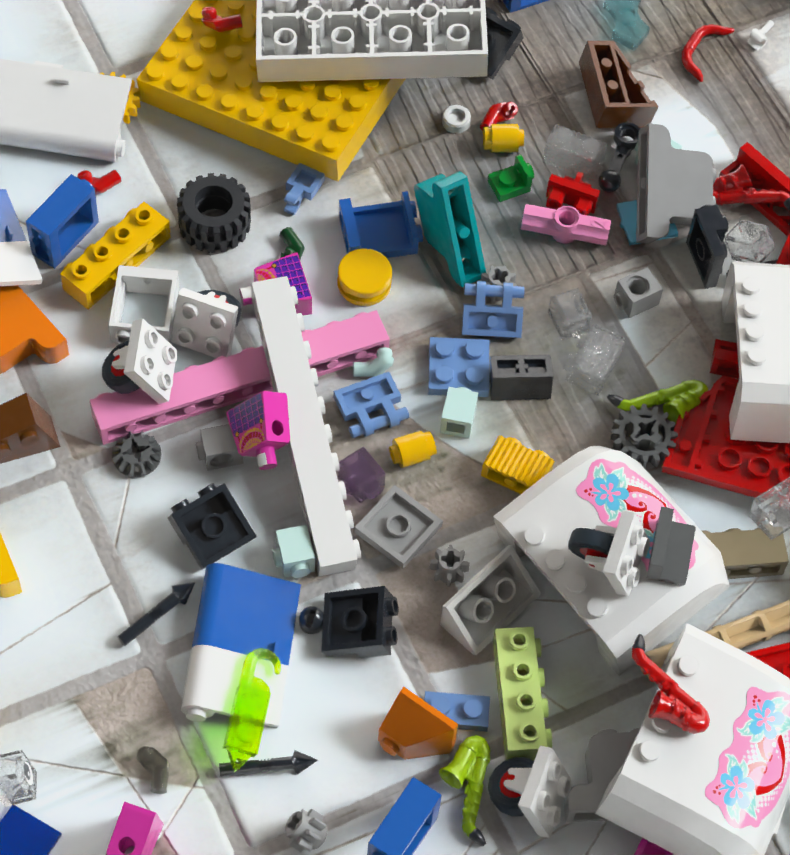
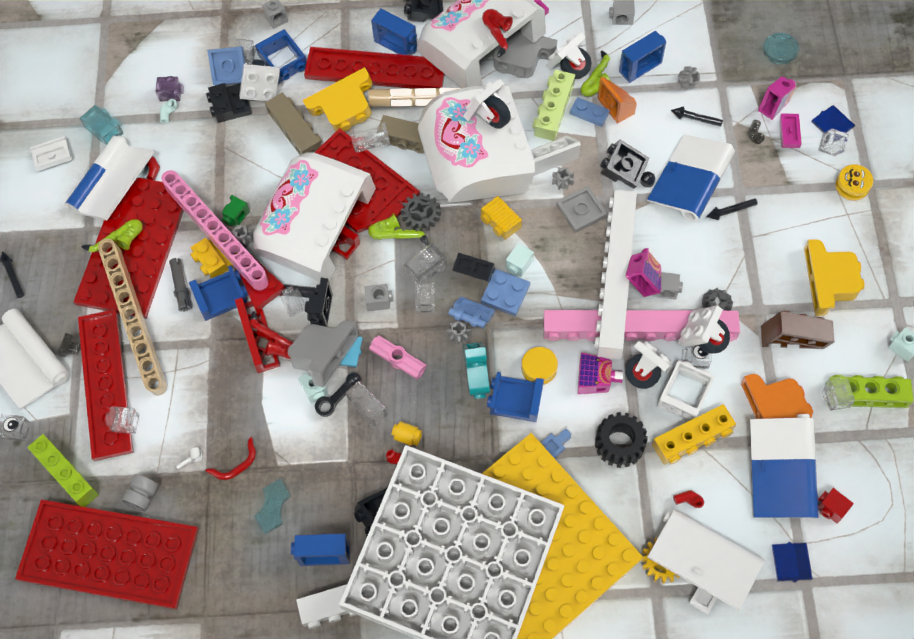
camera: 150 degrees left, 5 degrees up
(62, 220) = (724, 462): blue window -> none
(94, 790) = (790, 130): none -> dark pink plate
(211, 525) = (688, 242): black plate -> none
(219, 23) = (571, 574): red arm -> none
(249, 710) = (699, 138): clear neon green plate -> none
(292, 241) = (575, 404): dark green arm -> none
(294, 552) = (645, 212): light aqua brick -> none
(361, 475) = (591, 242): clear purple brick -> none
(369, 396) = (568, 288): medium blue plate -> none
(377, 366) = (552, 305): light aqua arm -> none
(412, 448) = (556, 248): yellow brick -> none
(512, 180) = (415, 404): green bracket -> none
(572, 192) = (389, 381): red hips -> none
(612, 88) = (317, 441): reddish brown wedge -> none
(671, 549) = (455, 105): dark grey panel -> none

